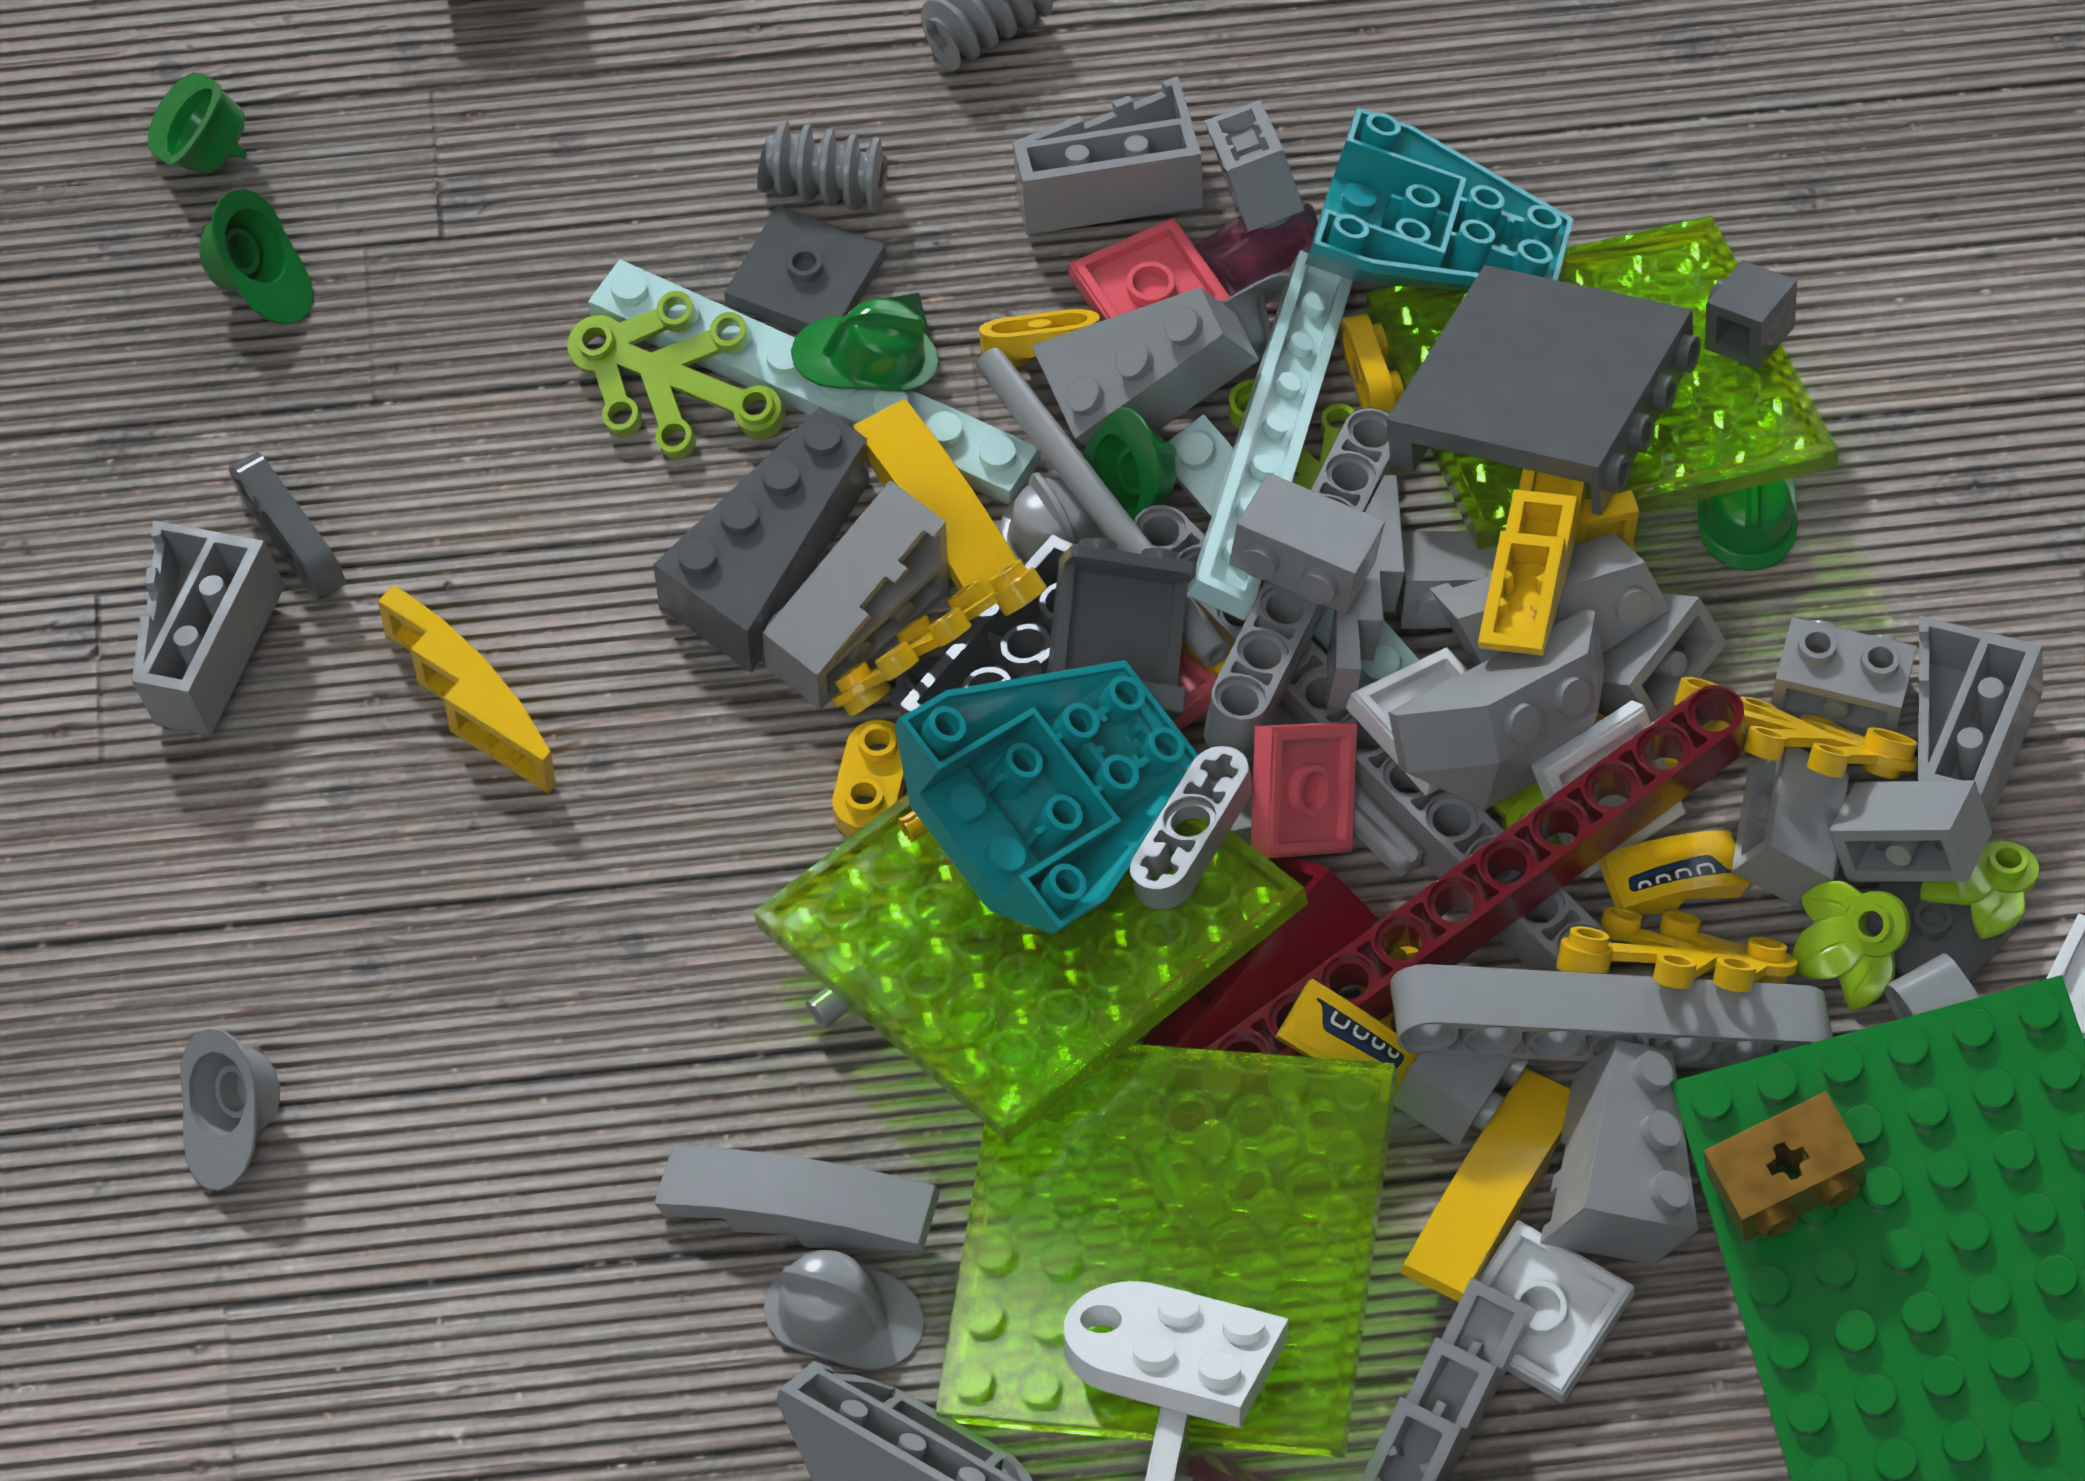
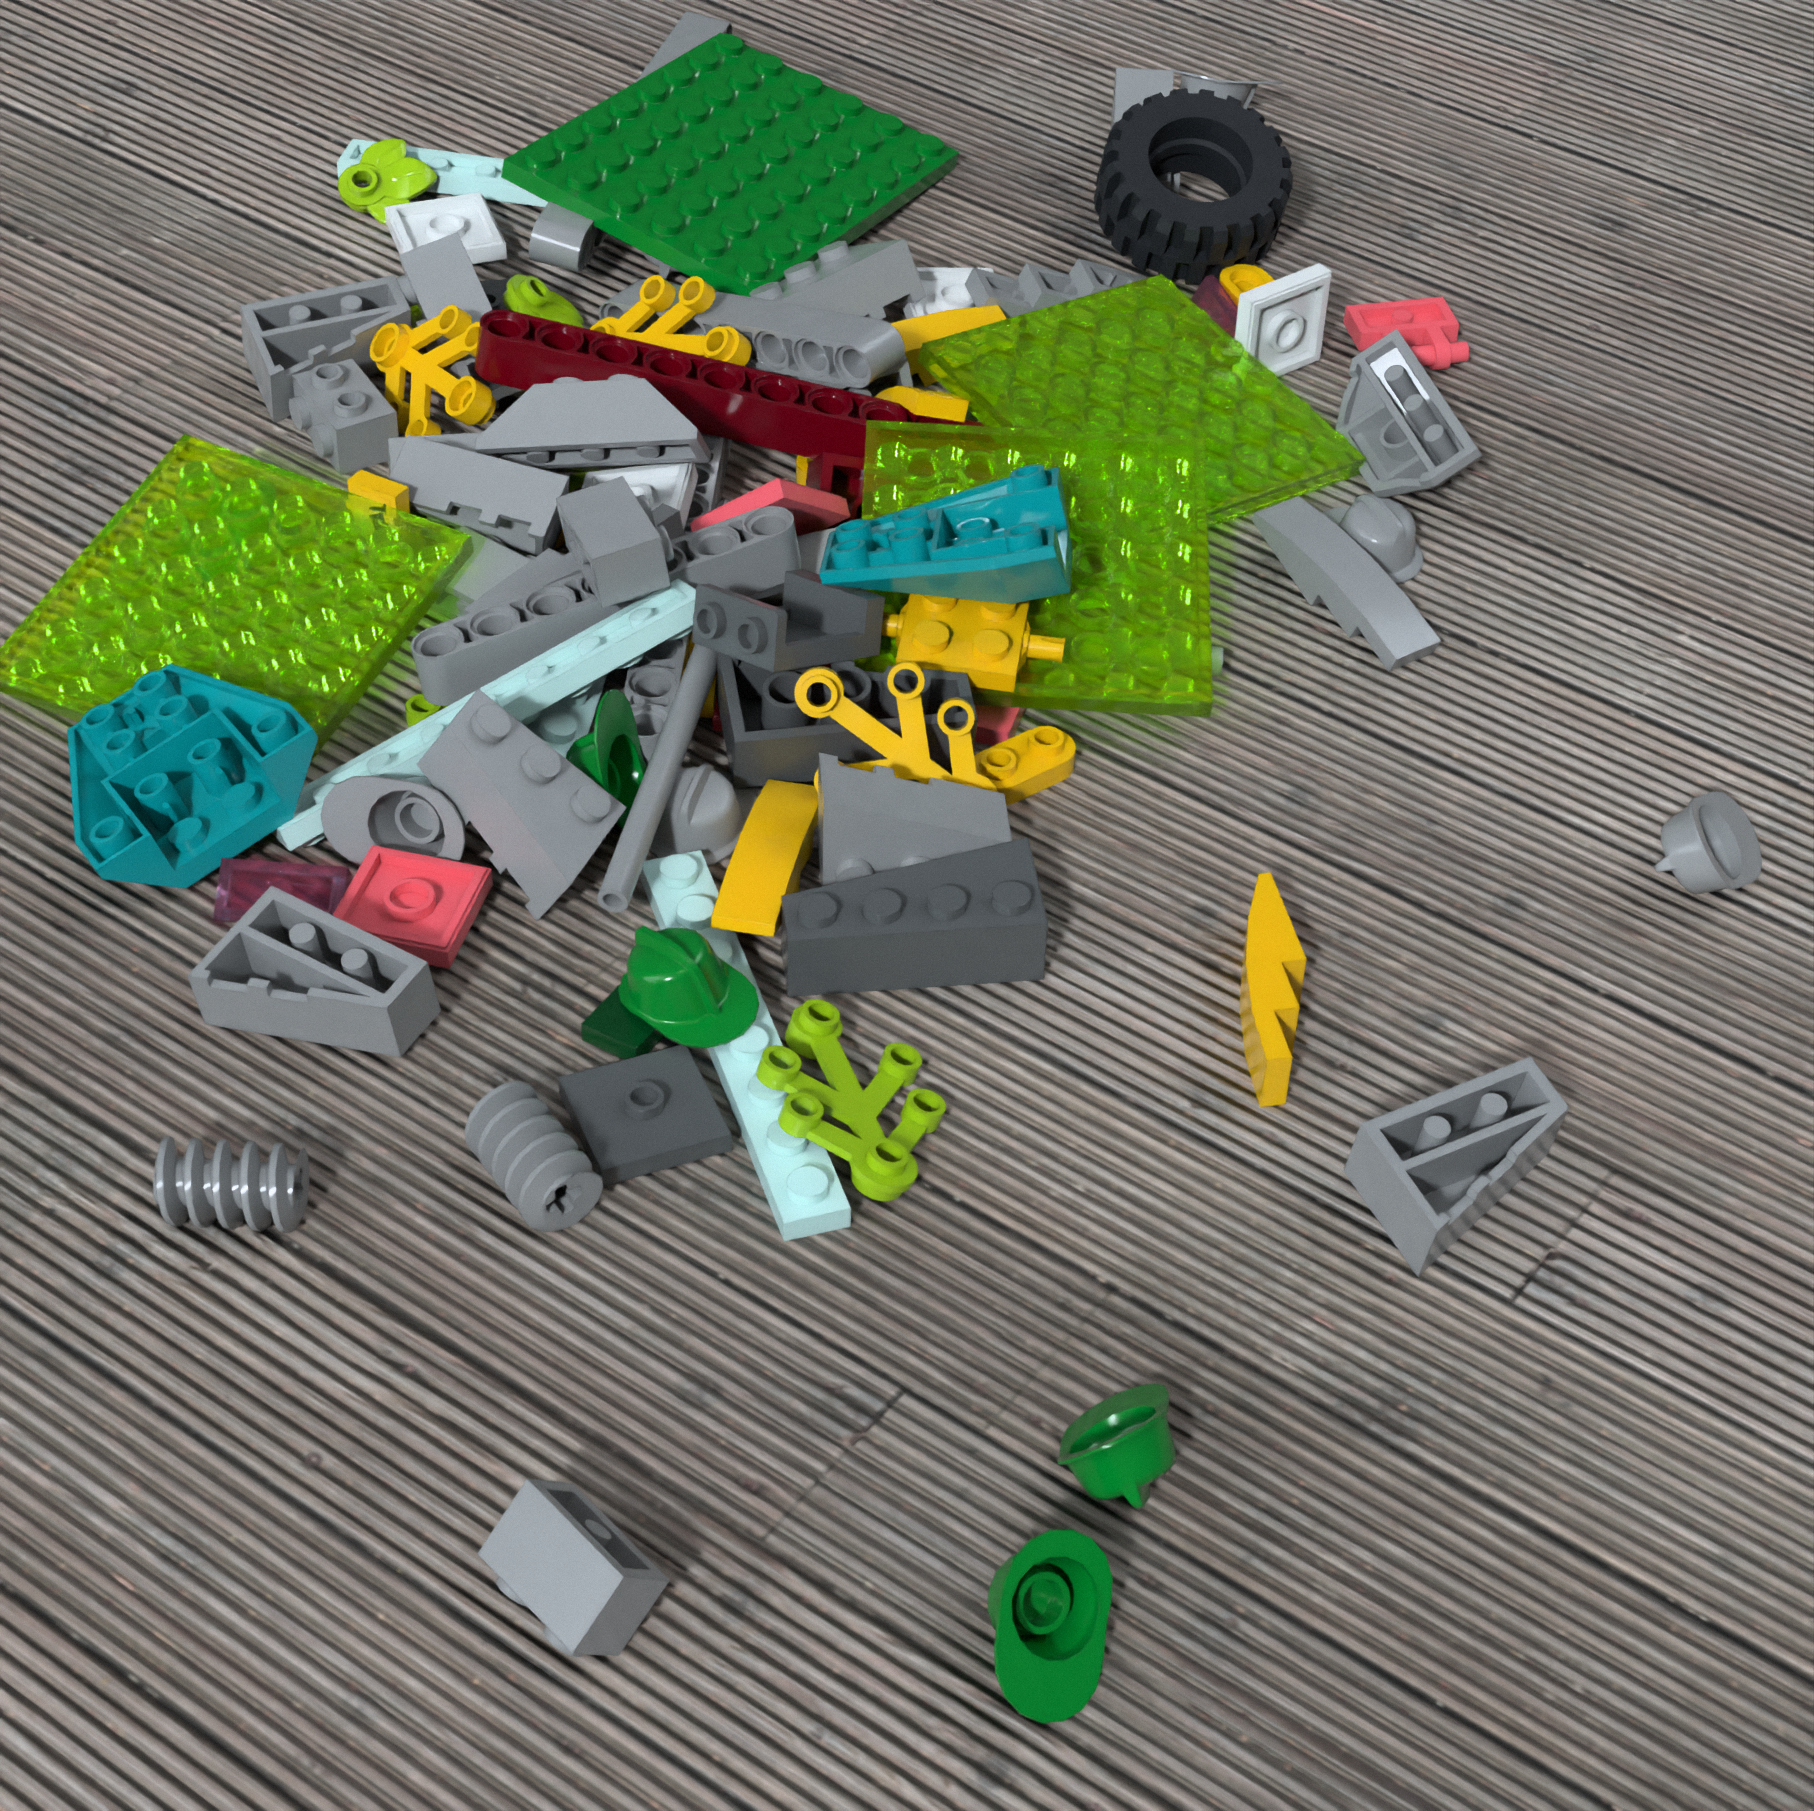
camera: 140 degrees left, 15 degrees down
(287, 526) = (1300, 1208): dark grey beam -> none
(1018, 333) = (541, 926): yellow plate -> none
(1173, 1348) = (1213, 318): white plate -> none
(1195, 852) = (848, 489): light grey beam -> none
(1254, 166) = (230, 875): light grey brick -> none
(1365, 355) = (350, 735): yellow plate -> none
(1532, 563) = (486, 457): yellow slope -> none
(1546, 380) = (304, 567): dark grey panel -> none
(1750, 314) = (96, 534): dark grey brick -> none
(1807, 1140) = (768, 197): pearl gold brick -> none

